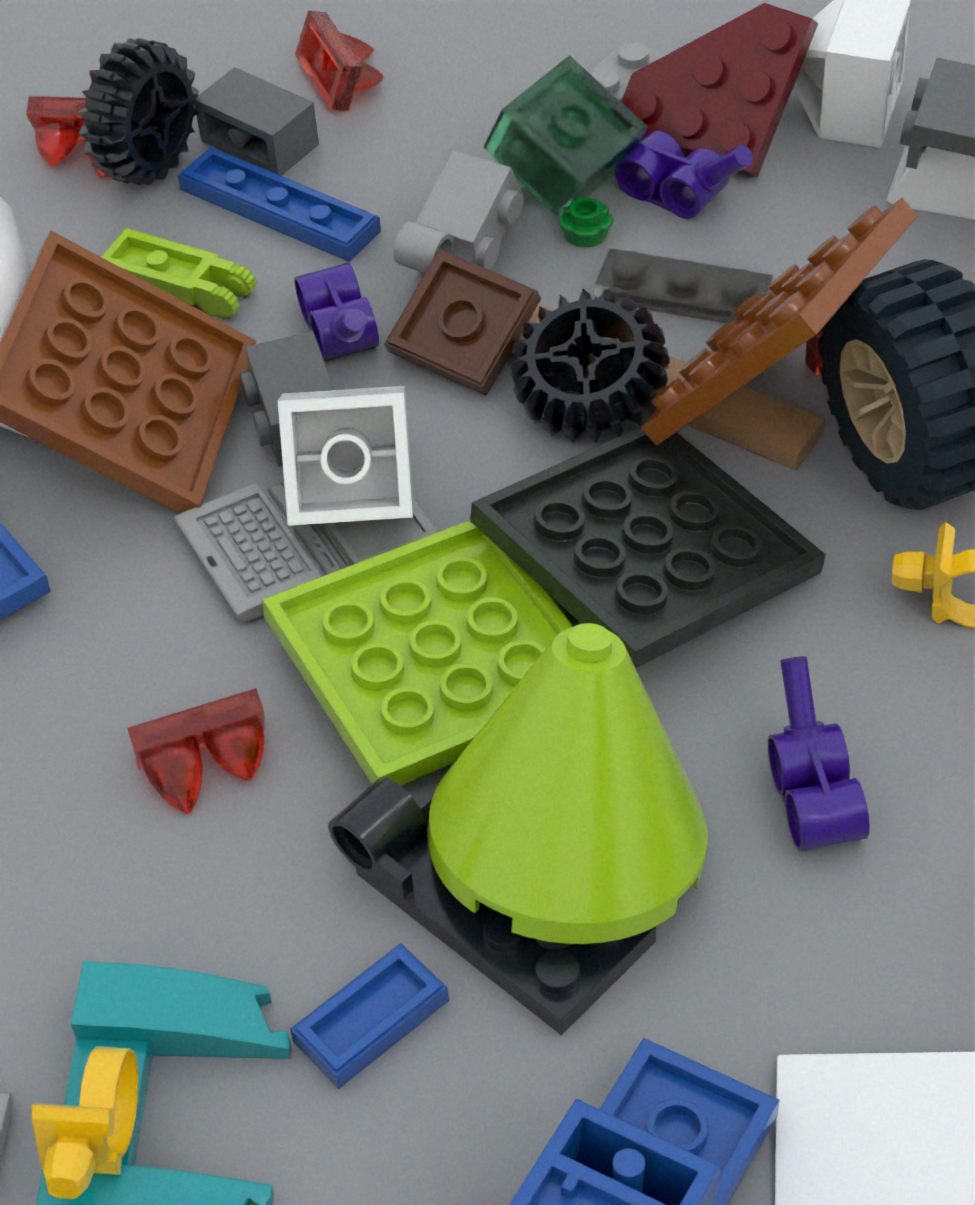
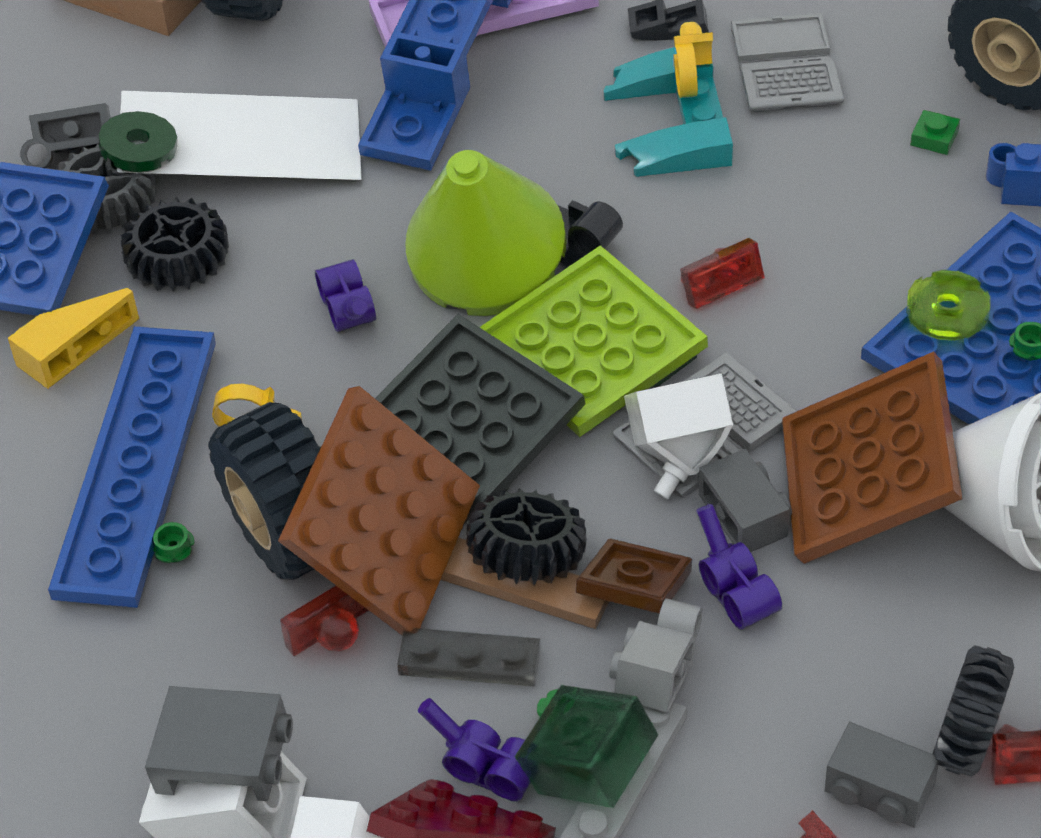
camera: 170 degrees right, 0 degrees up
(183, 271) = (886, 610): lime hinge -> none
(280, 203) = (827, 702): blue tile -> none
(369, 1015) = (577, 167): blue tile -> none

